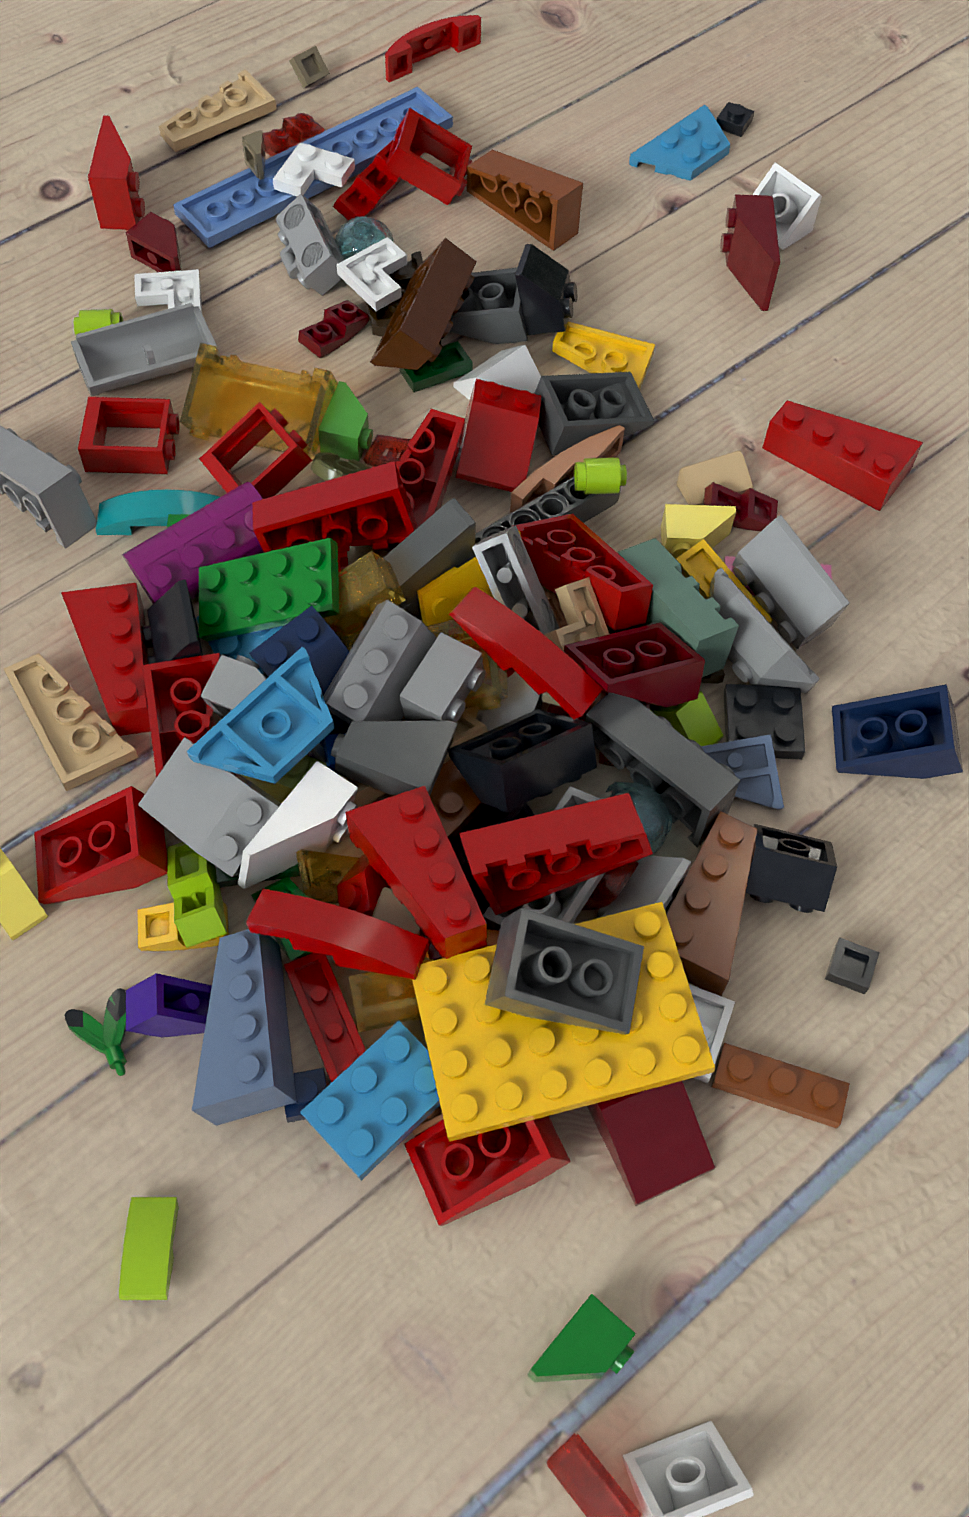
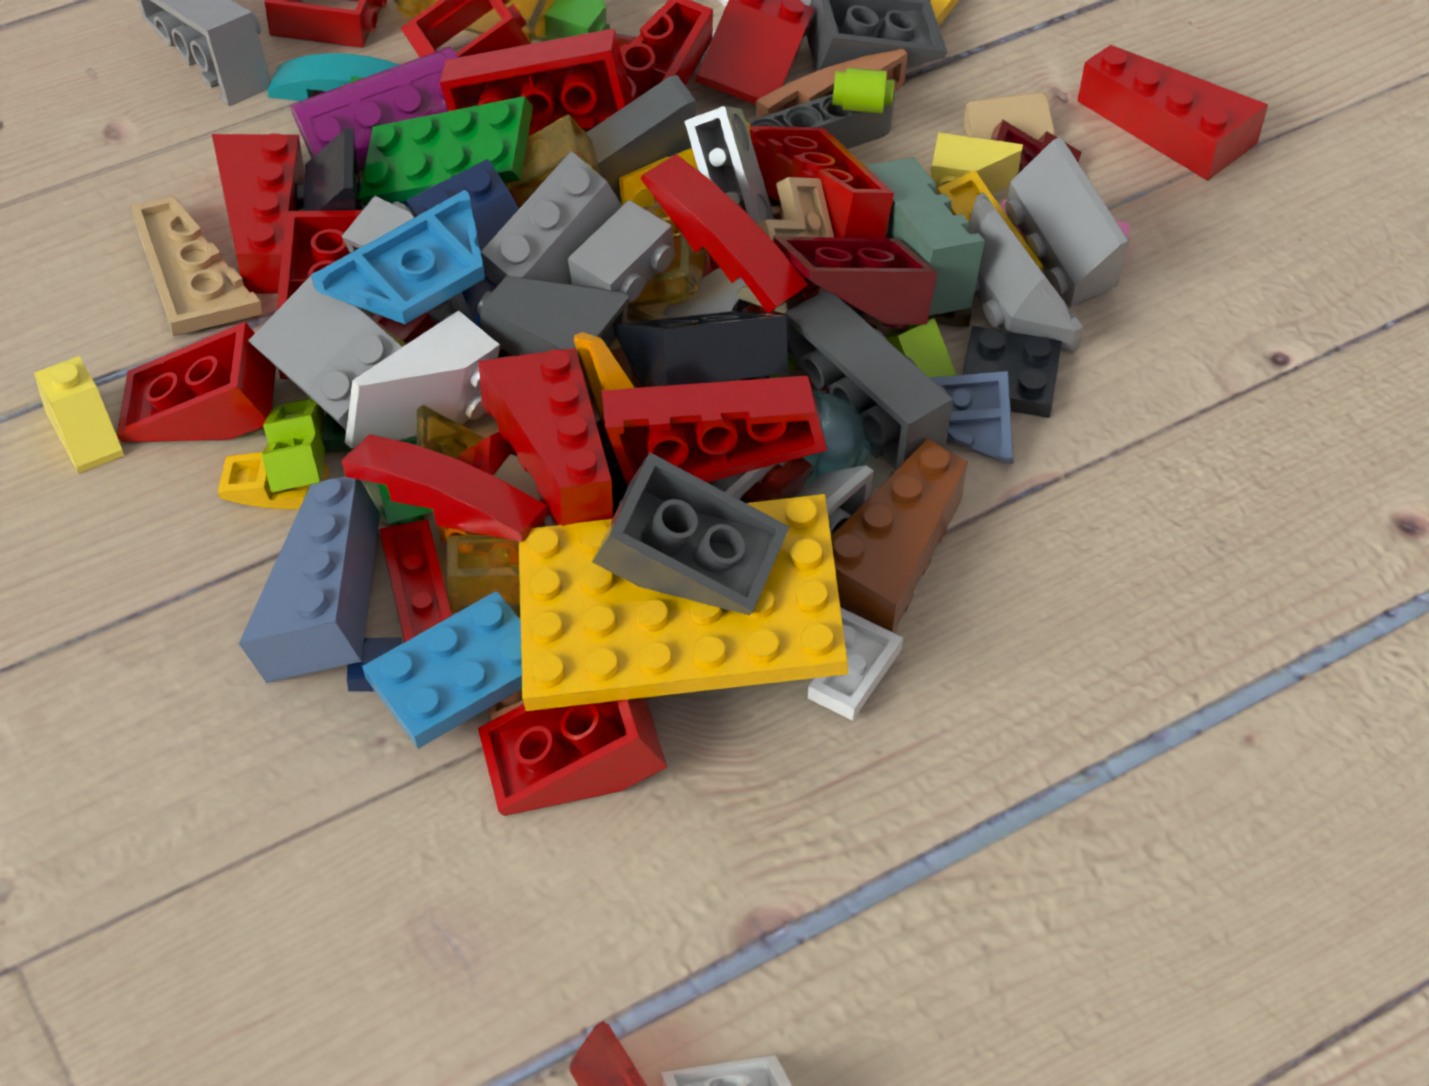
camera: 10 degrees right, 10 degrees down
(105, 1037) = (161, 578): green piece -> none
(148, 1248) = (158, 782): lime slope -> none
(167, 1006) = (234, 549): dark purple slope -> none
(453, 807) = (599, 368): none -> light orange slope
(586, 1346) = (637, 951): green slope -> none
(653, 1140) = (770, 752): dark red slope -> none
(781, 1085) = (941, 735): dark orange plate -> none
(791, 869) = (1000, 518): black slope -> none
(852, 966) = (1056, 625): black plate -> none
(898, 735) = (1173, 401): dark blue slope -> none

